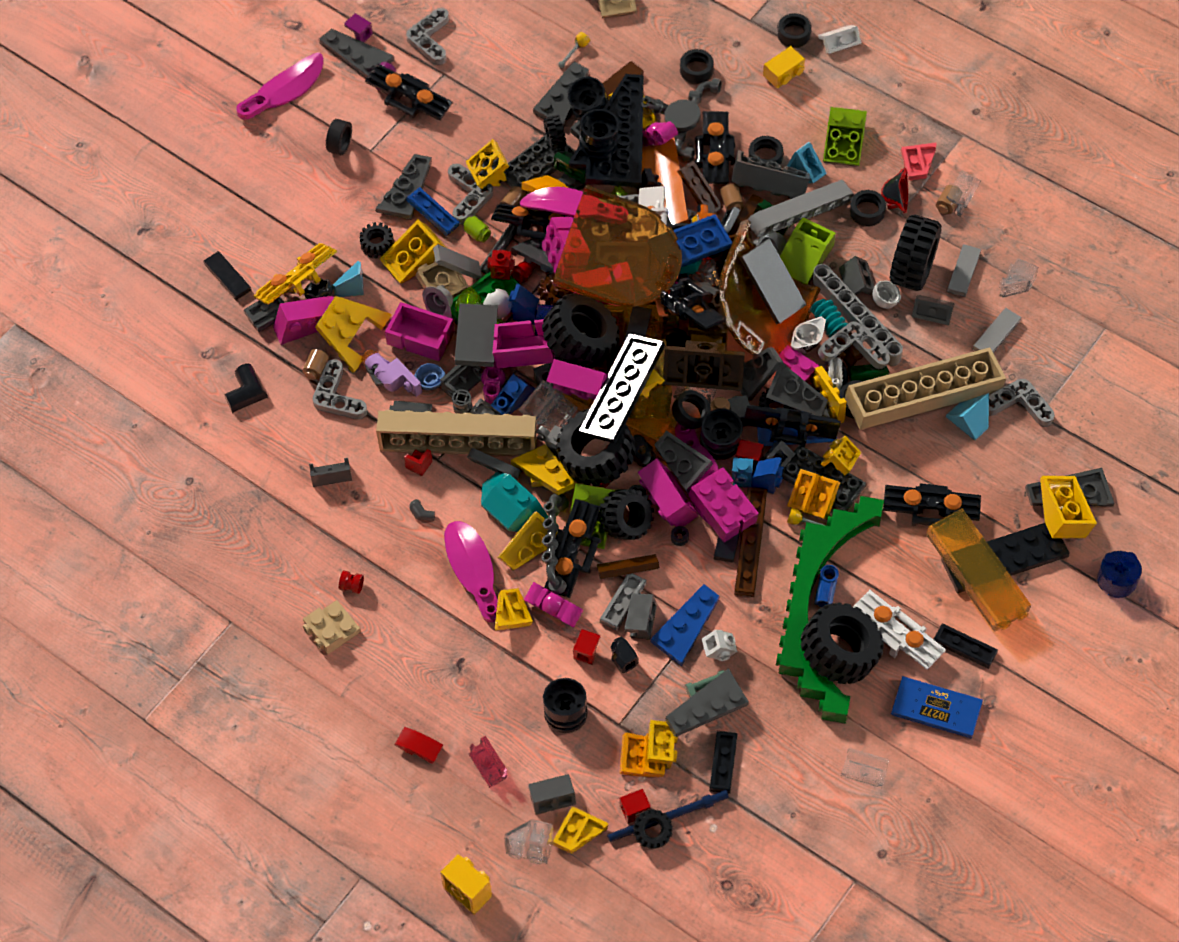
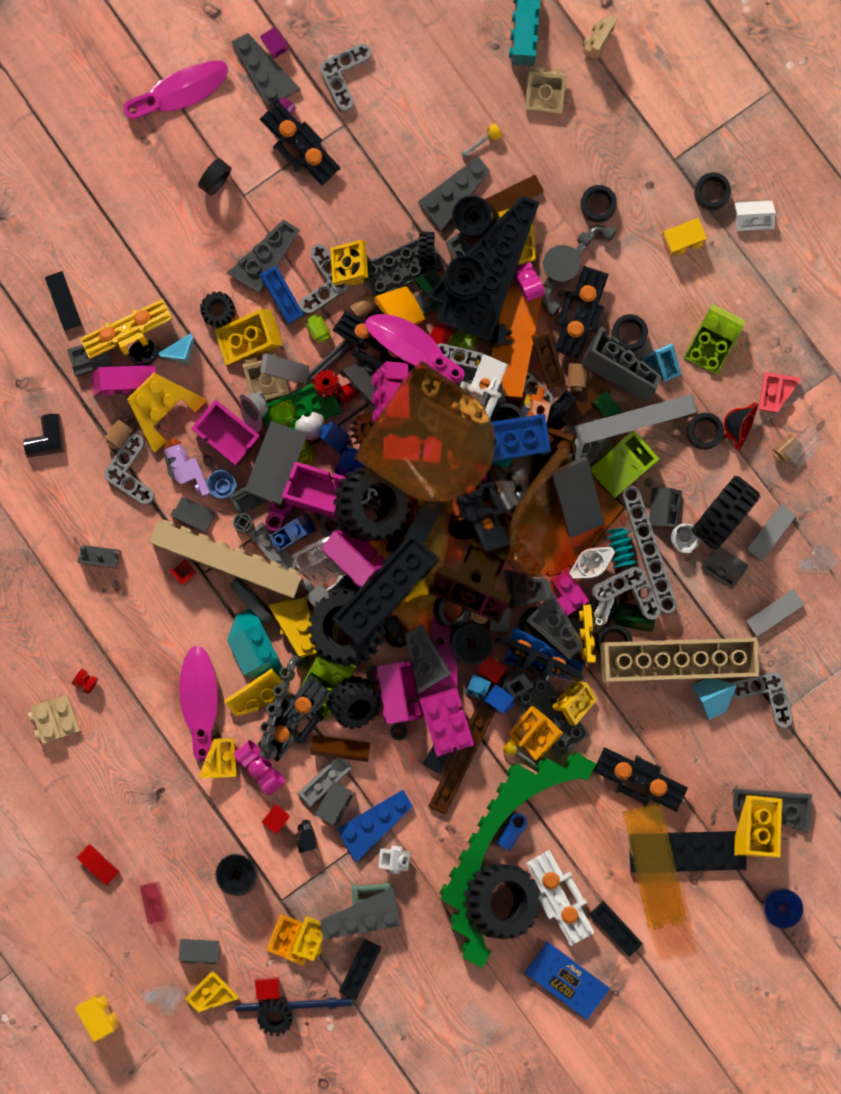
camera: 15 degrees right, 25 degrees up
(419, 512) = (168, 626): dark grey arm -> none
(656, 106) = (539, 244): dark grey axle -> none

